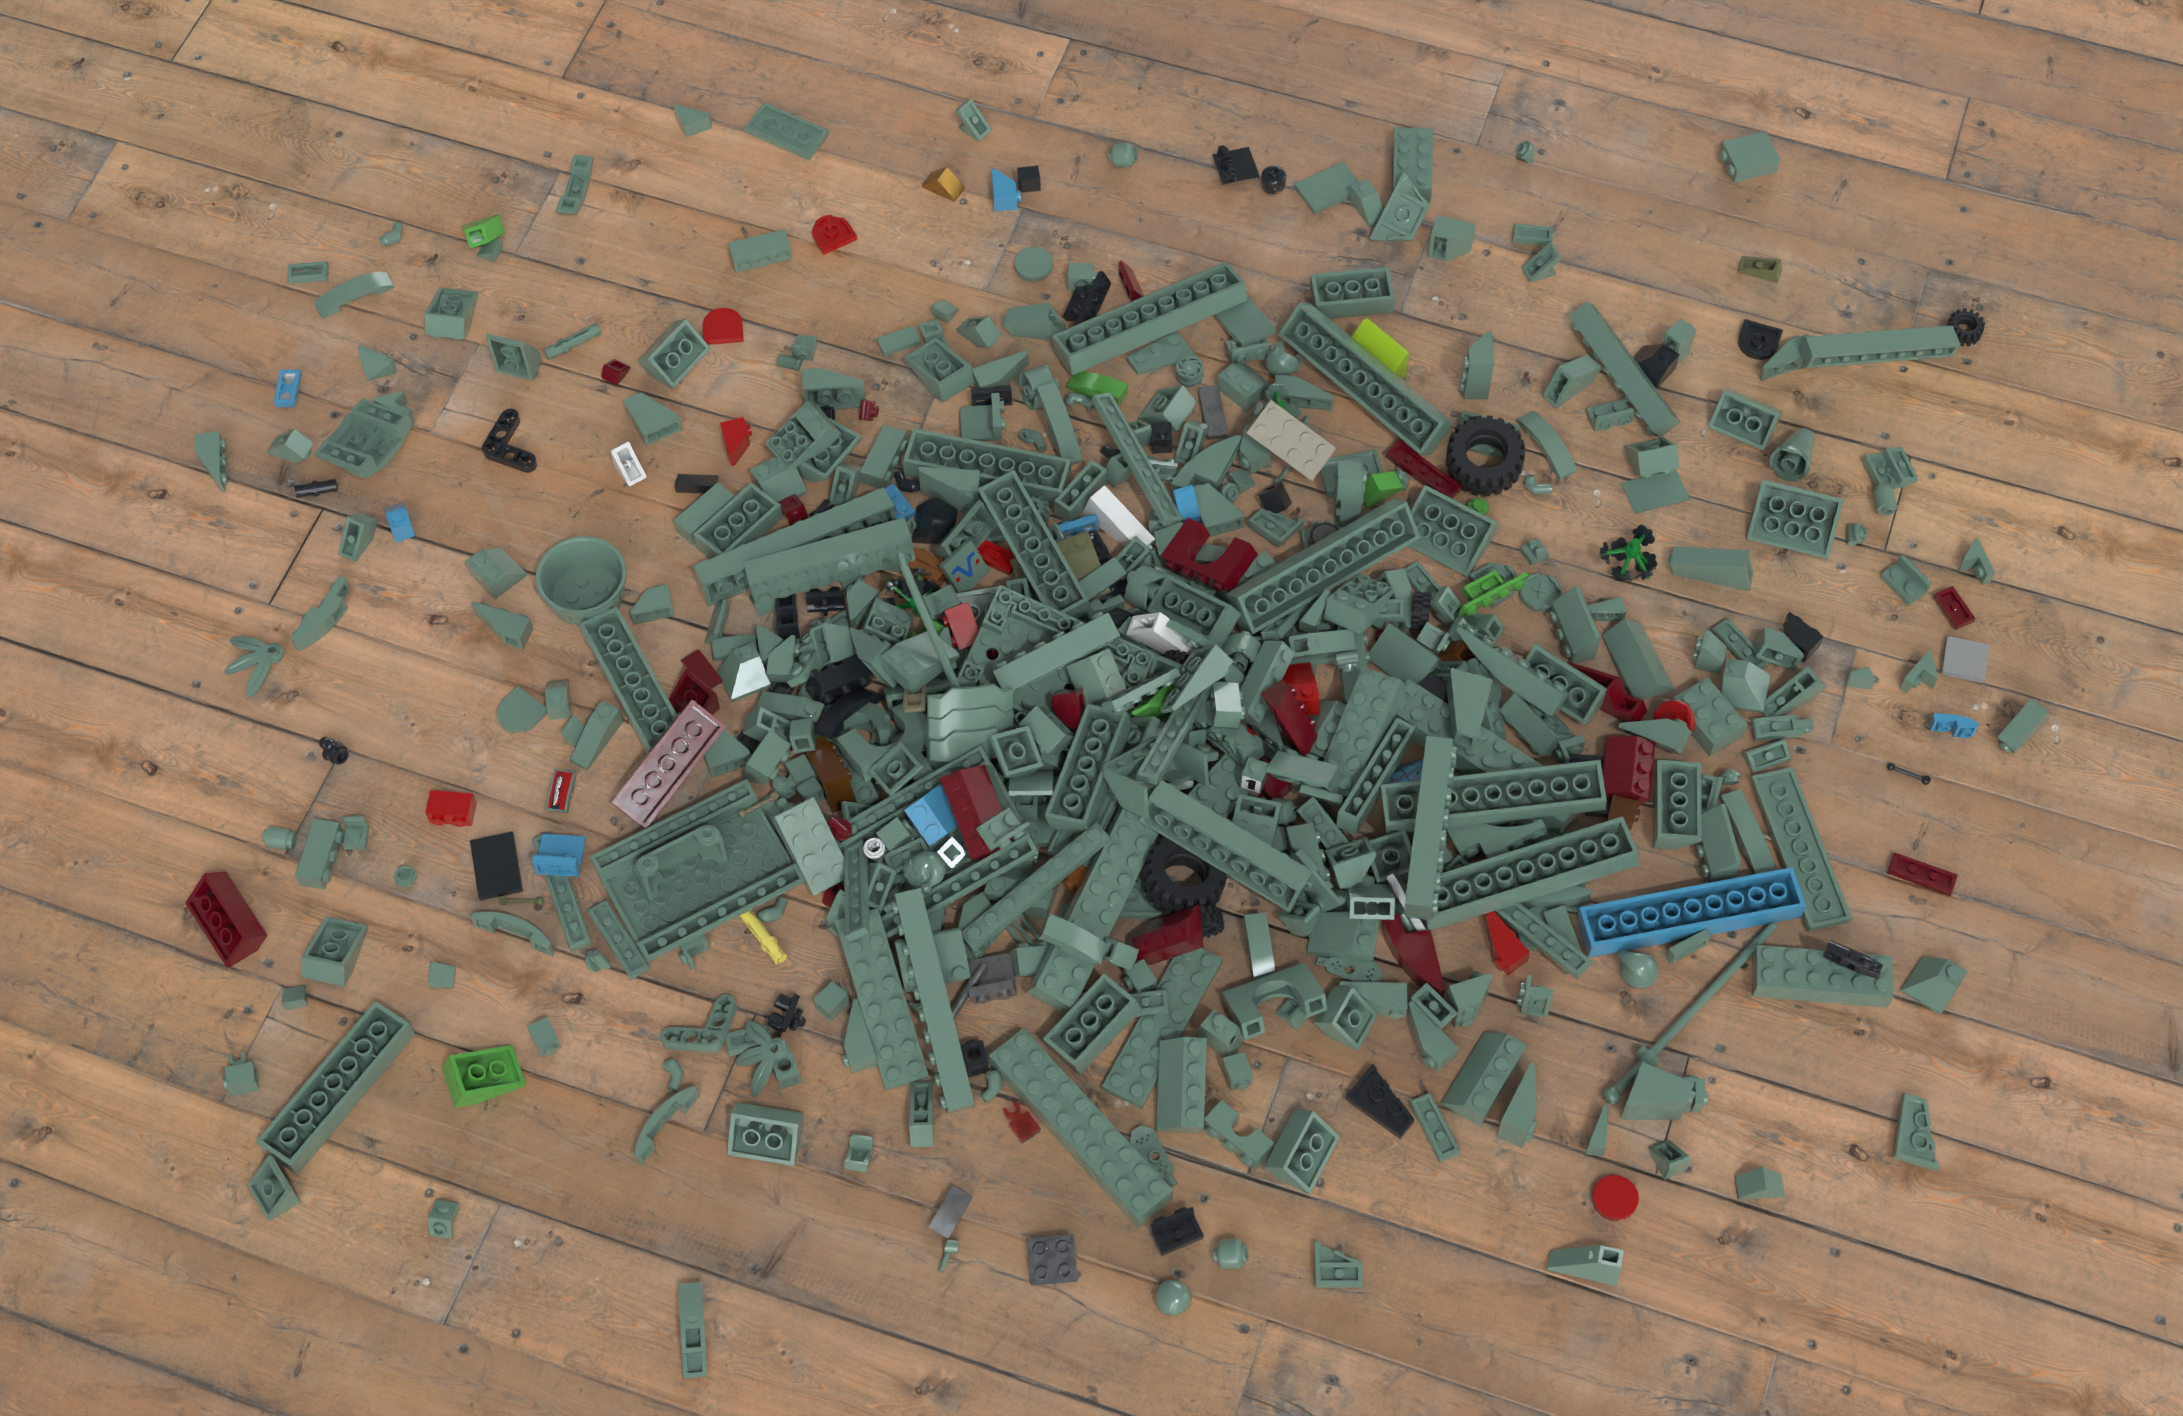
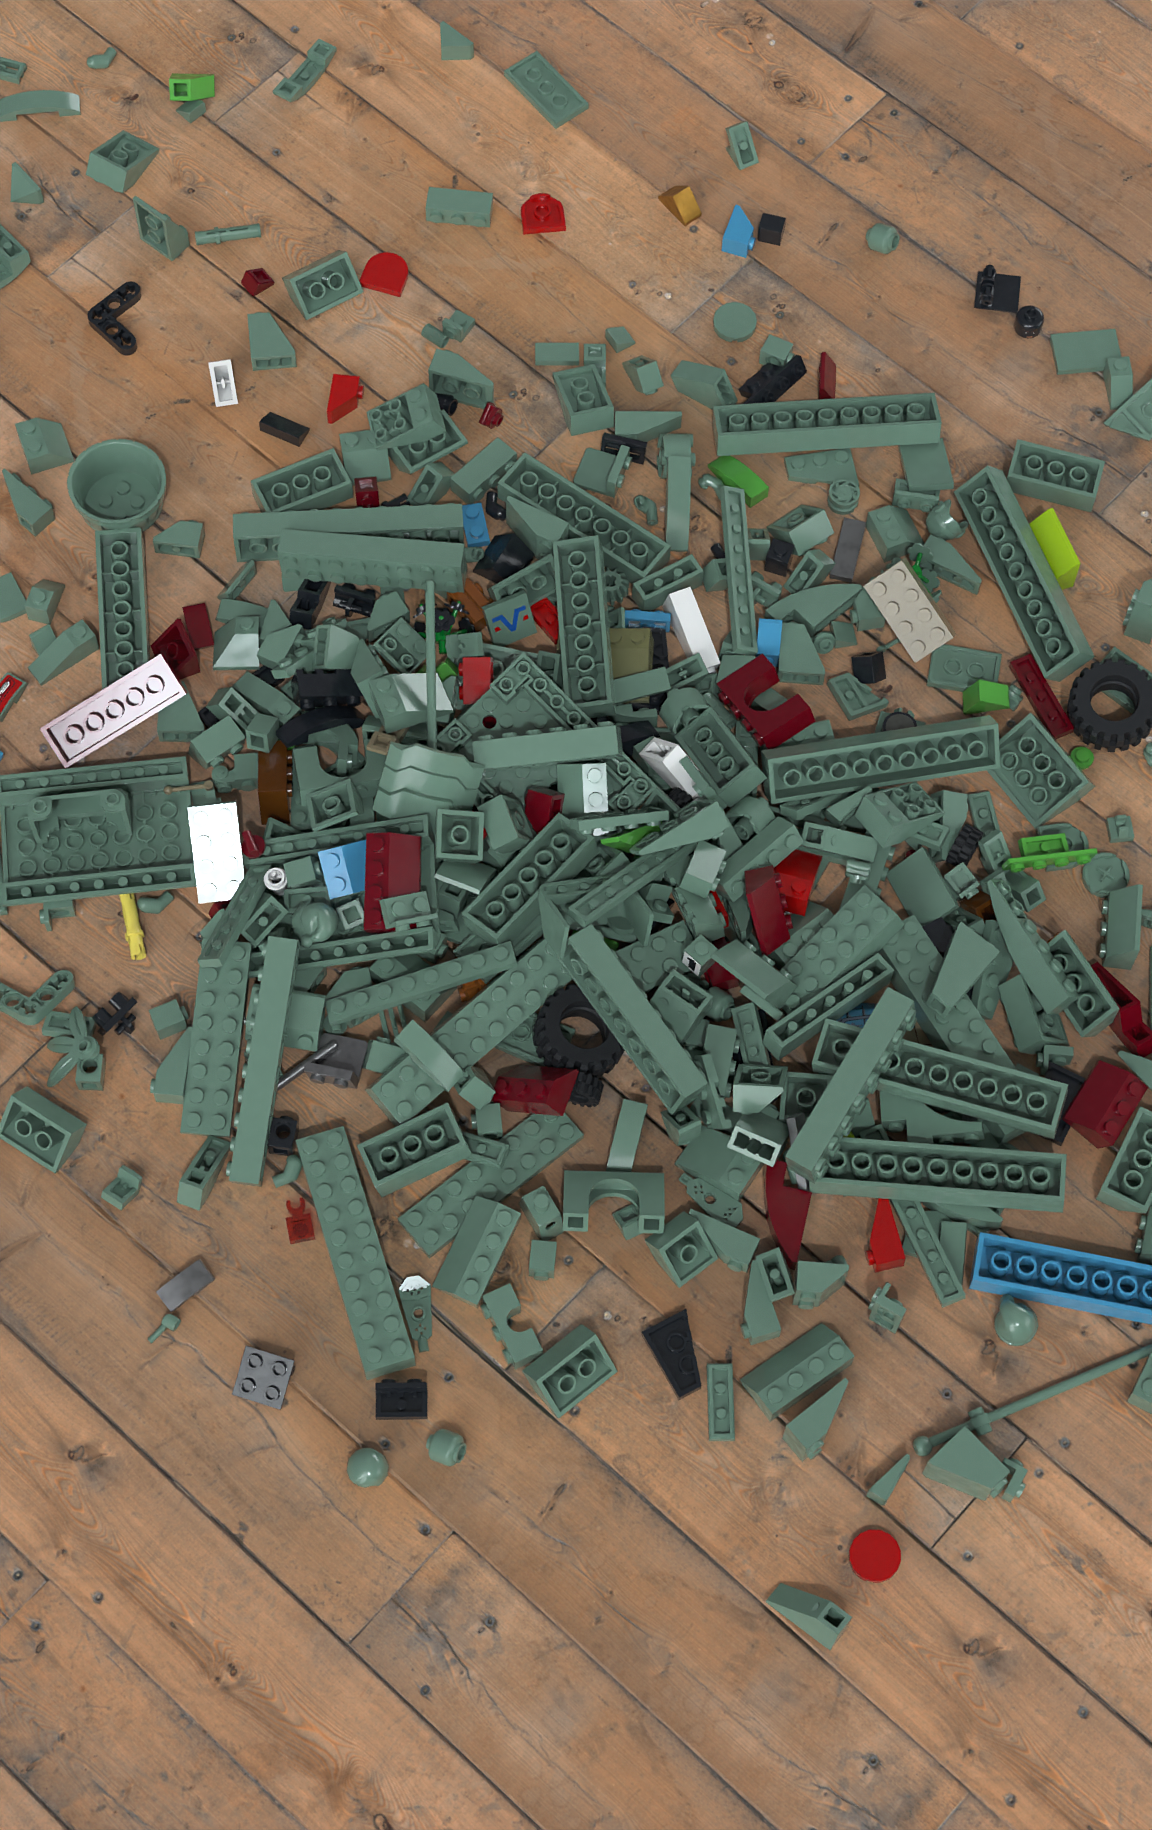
camera: 20 degrees right, 5 degrees up
(395, 401) = (25, 235): sand green slope -> none
(701, 511) = (274, 458): sand green brick -> none
(811, 788) = (246, 795): sand green slope -> none
(1336, 1269) = (546, 1508): sand green wing -> none
(1349, 492) = (946, 690): sand green wedge -> none
(1624, 807) = (1079, 1149): reddish brown slope -> none
(1669, 1158) = (951, 1538): sand green slope -> none
(1688, 946) = (1080, 1320): sand green tile -> none
(1759, 1184) = (1036, 1607): sand green slope -> none

